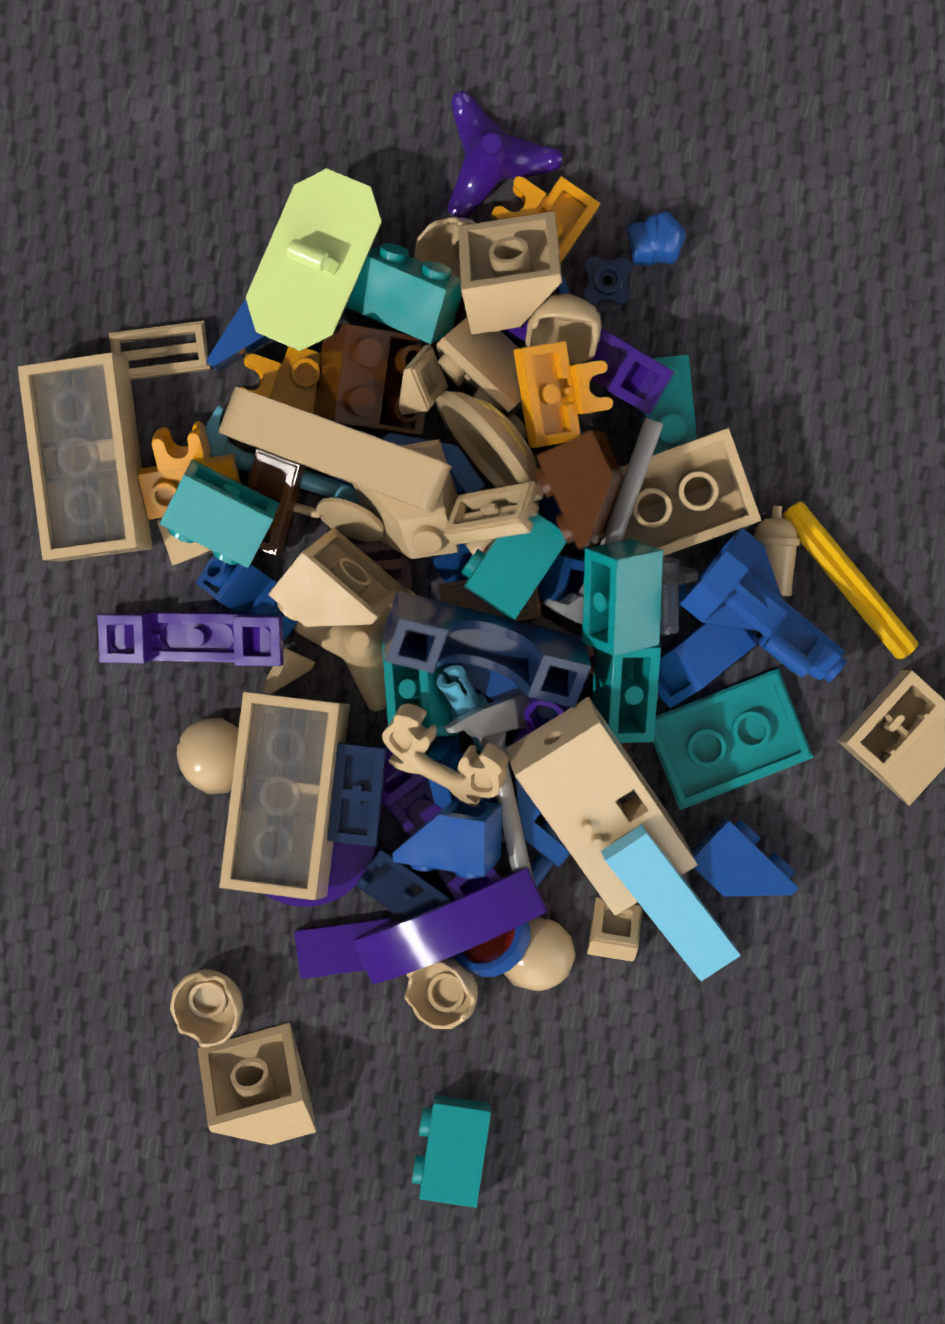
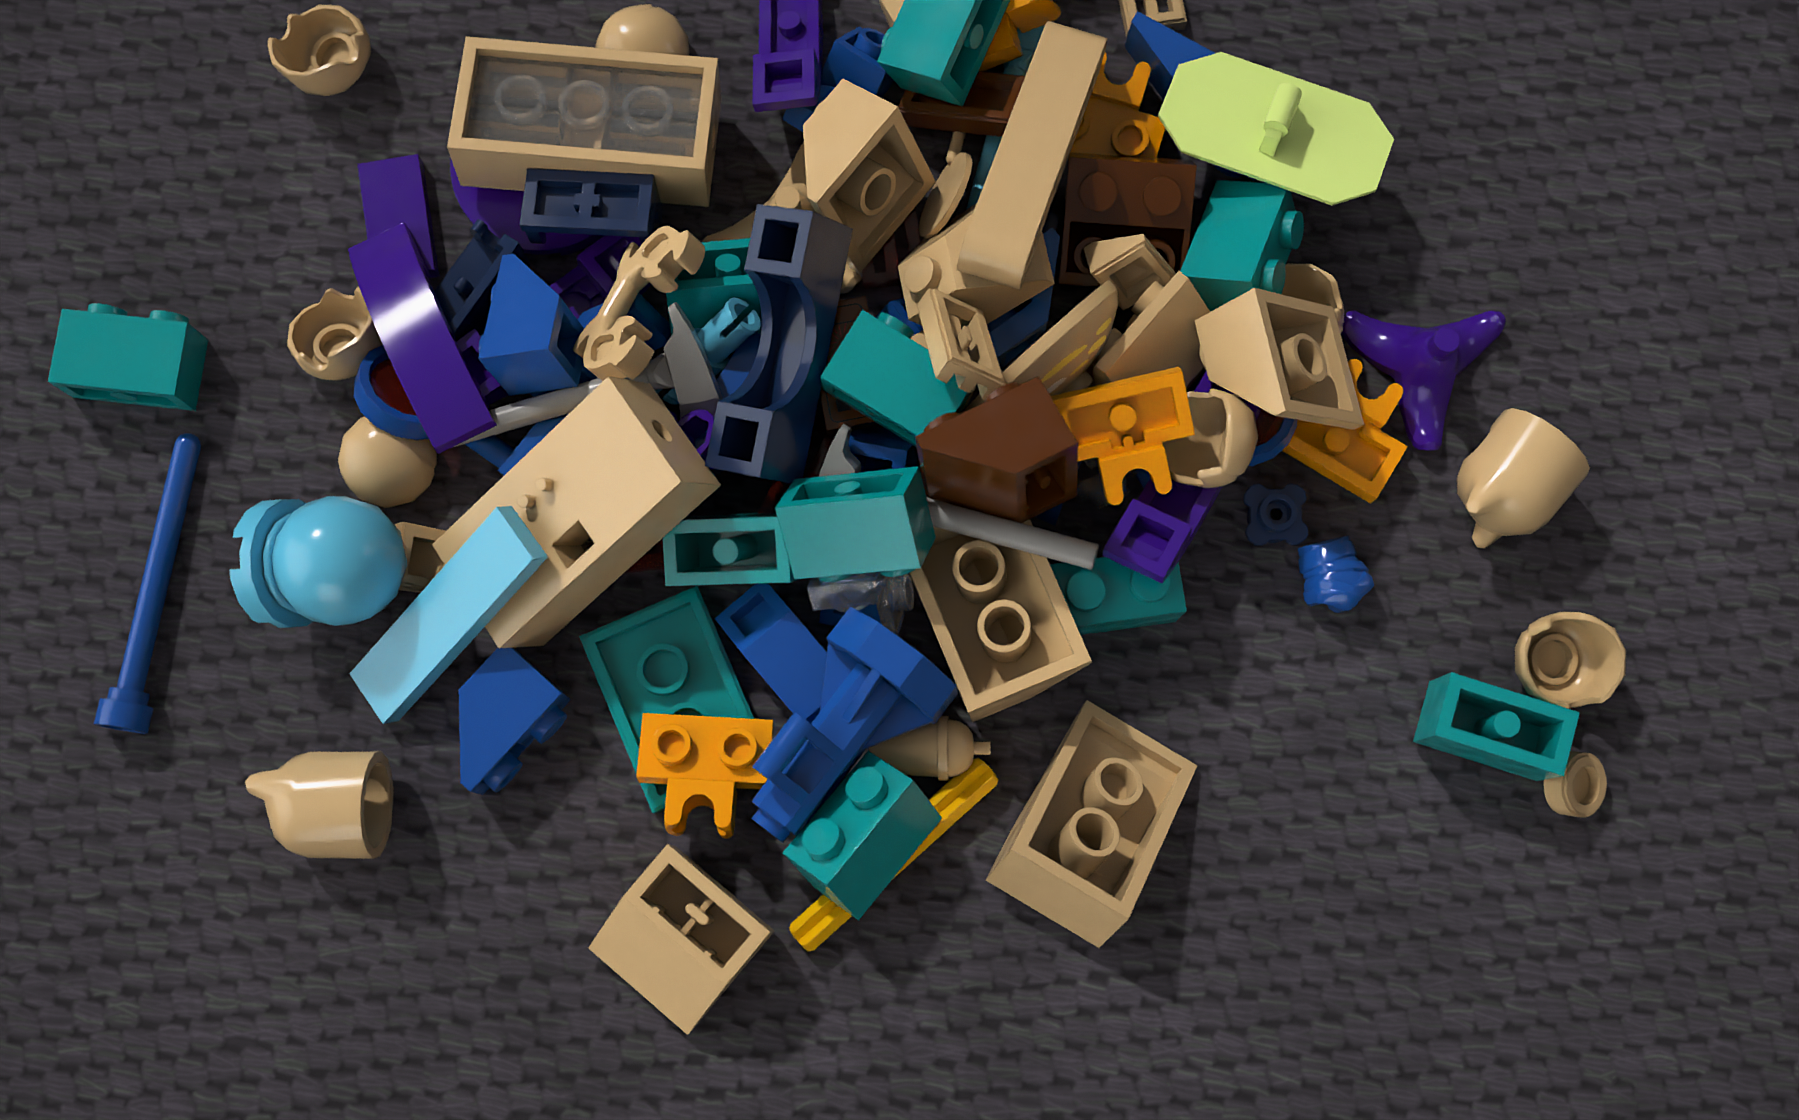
camera: 90 degrees right, 10 degrees down
(257, 1087) = (216, 113): tan slope -> none
(293, 668) = (752, 131): tan slope -> none
(592, 96) = (1518, 476): none -> tan piece
(626, 998) = (317, 561): none -> medium azure tile
(717, 1145) = (127, 703): none -> blue piece
(730, 69) = (1570, 659): none -> tan hair
(780, 130) = (1496, 727): none -> teal brick
(781, 717) = (701, 763): none -> light orange plate
(801, 992) = (329, 803): none -> tan piece
(820, 73) = (1581, 787): none -> tan tile
(835, 432) = (1093, 825): none -> tan slope
(842, 601) = (863, 834): none -> teal brick

